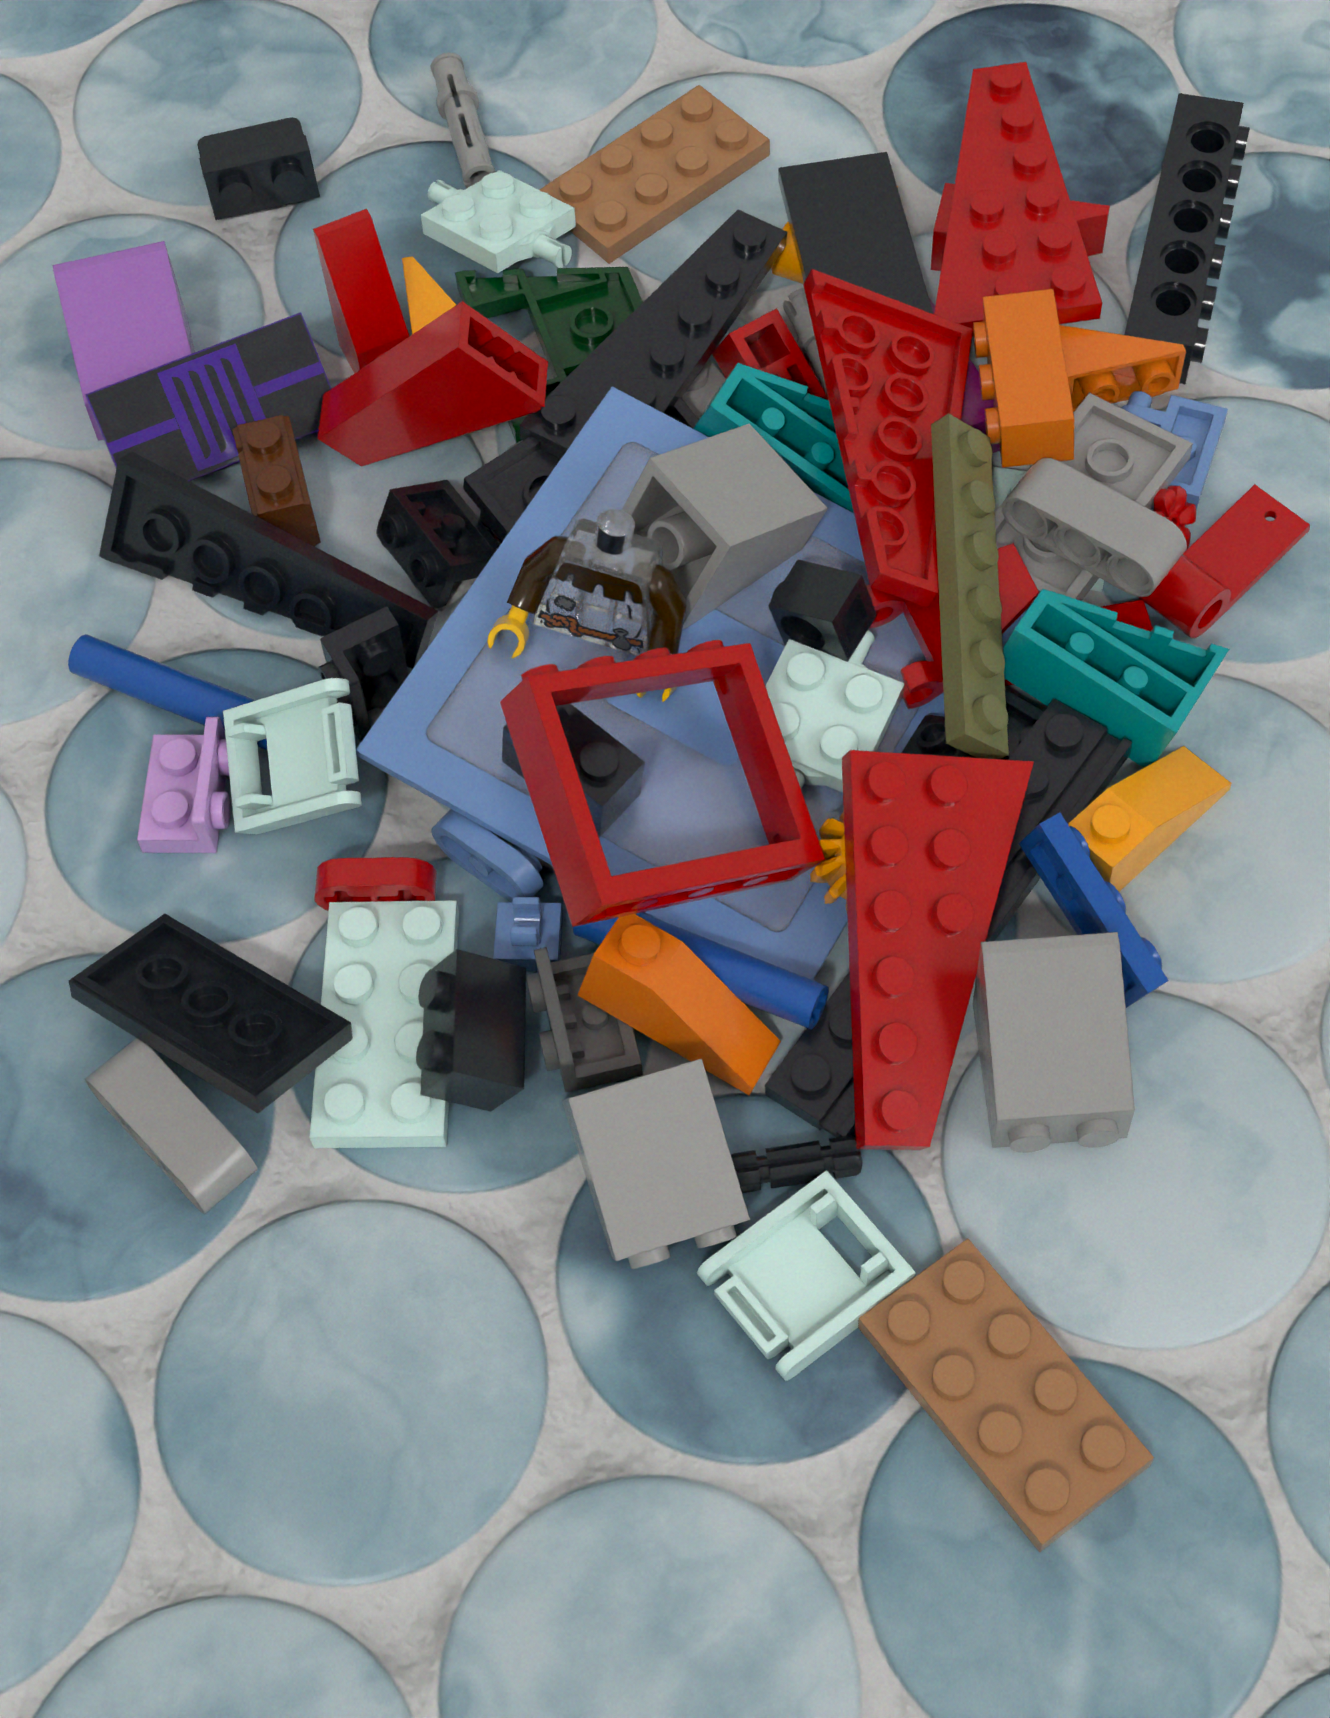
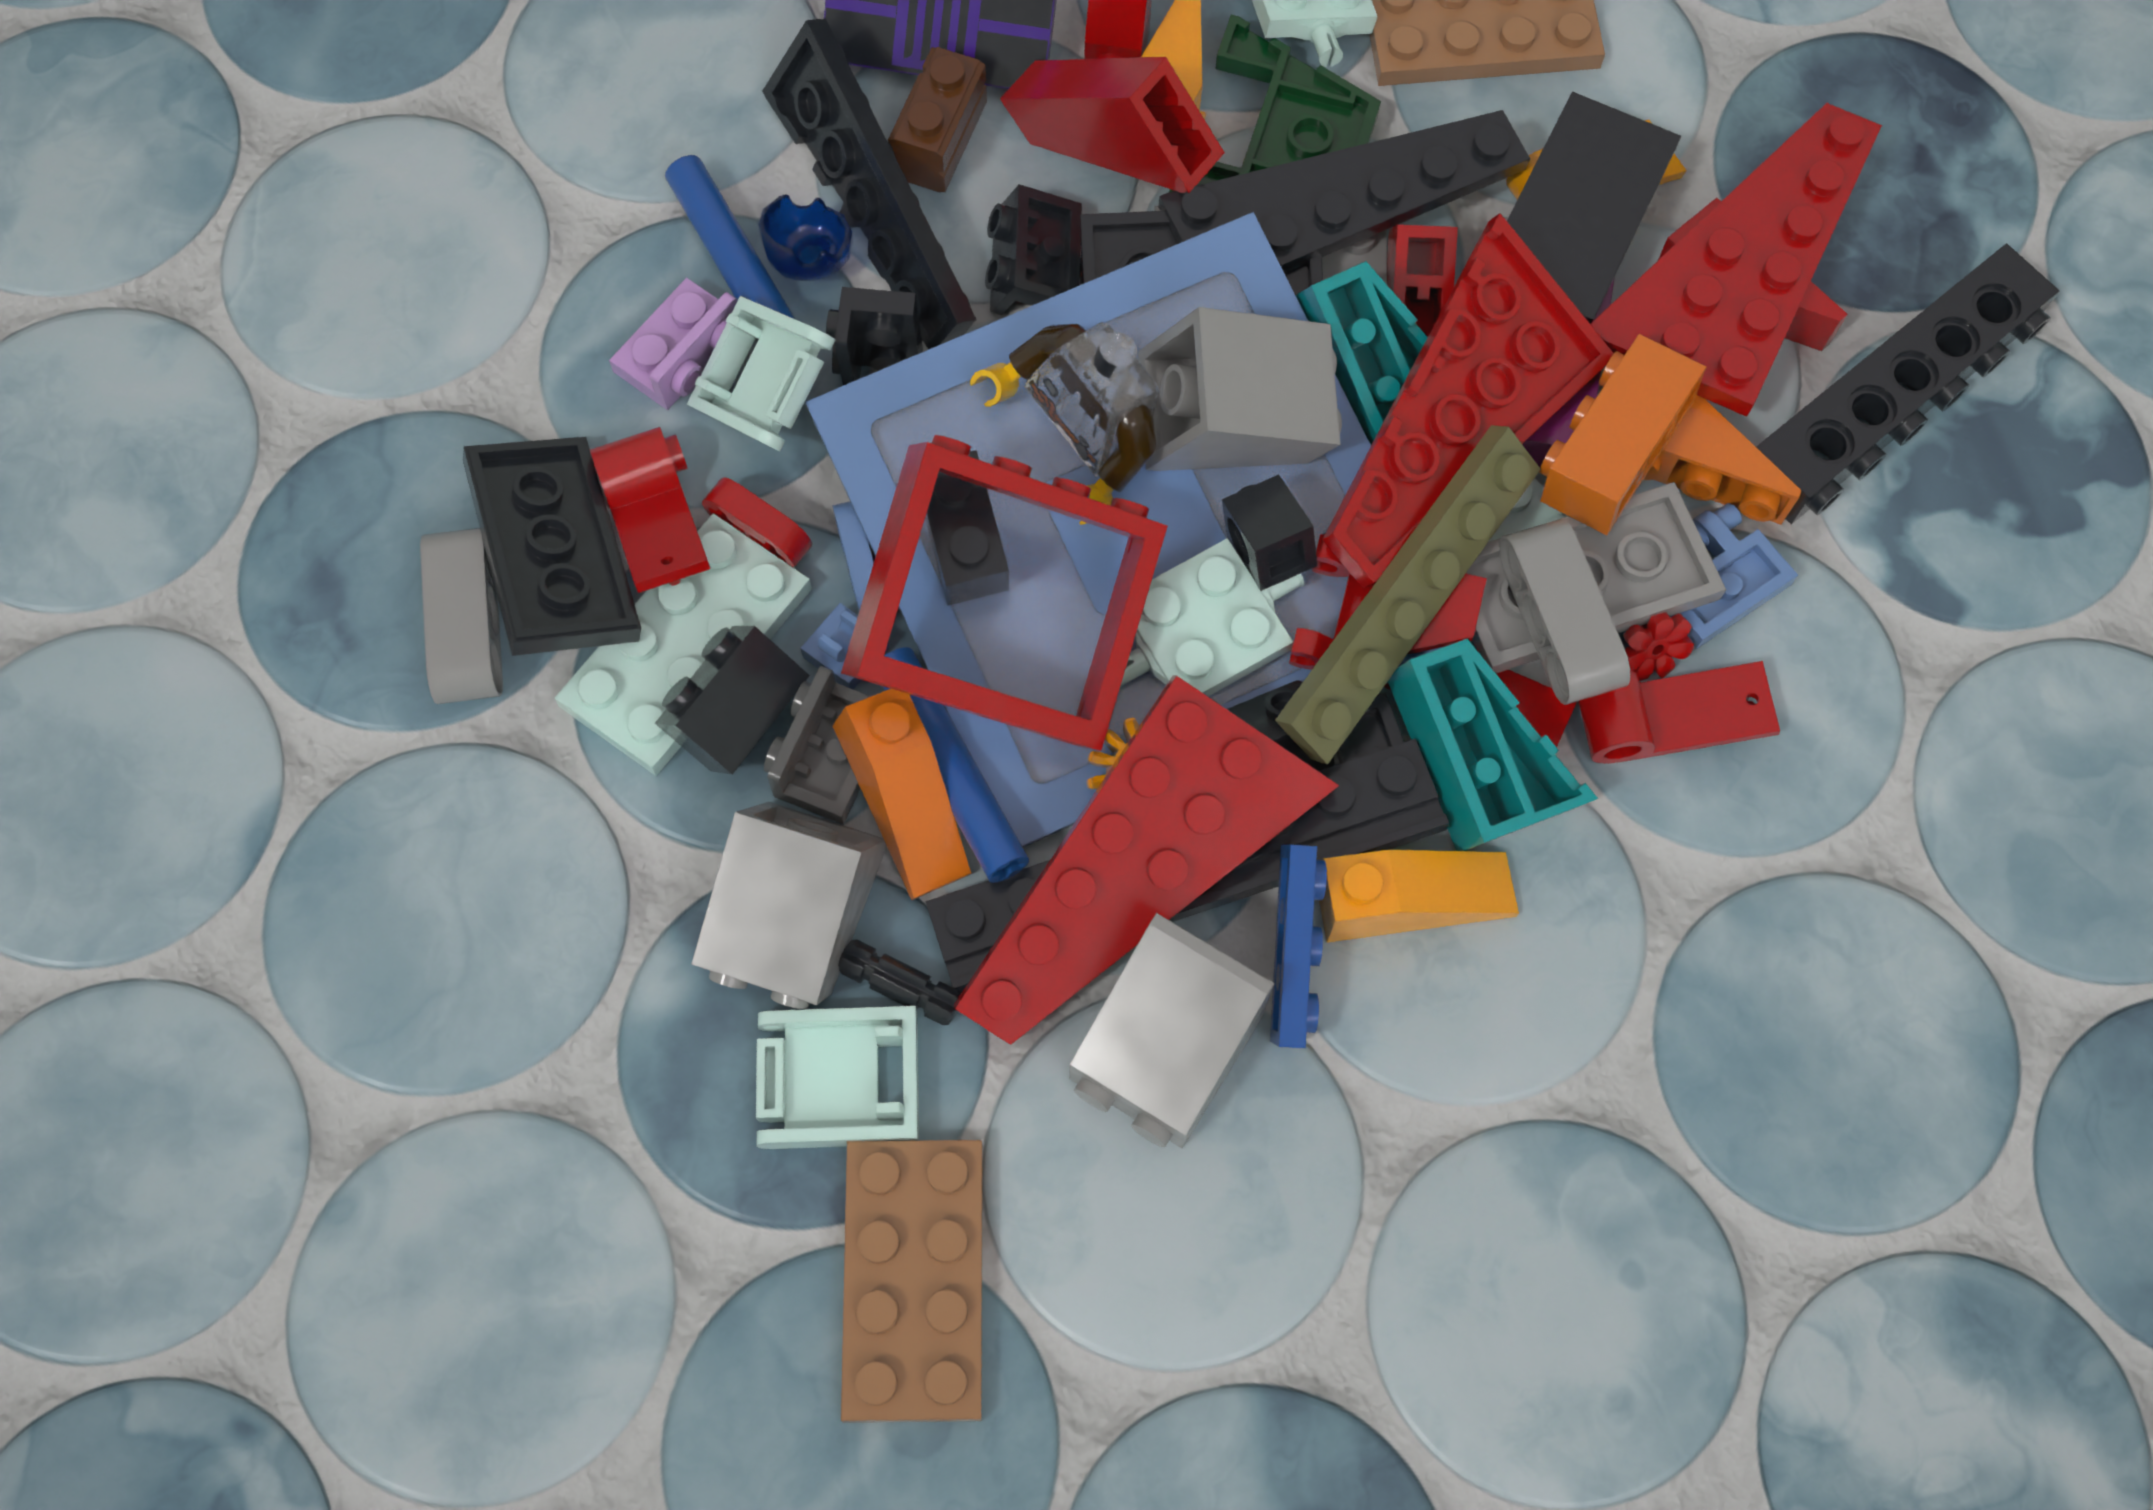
camera: 30 degrees right, 10 degrees up
(237, 642) = (805, 240): none -> clear blue hair
(275, 934) = (650, 507): none -> red door

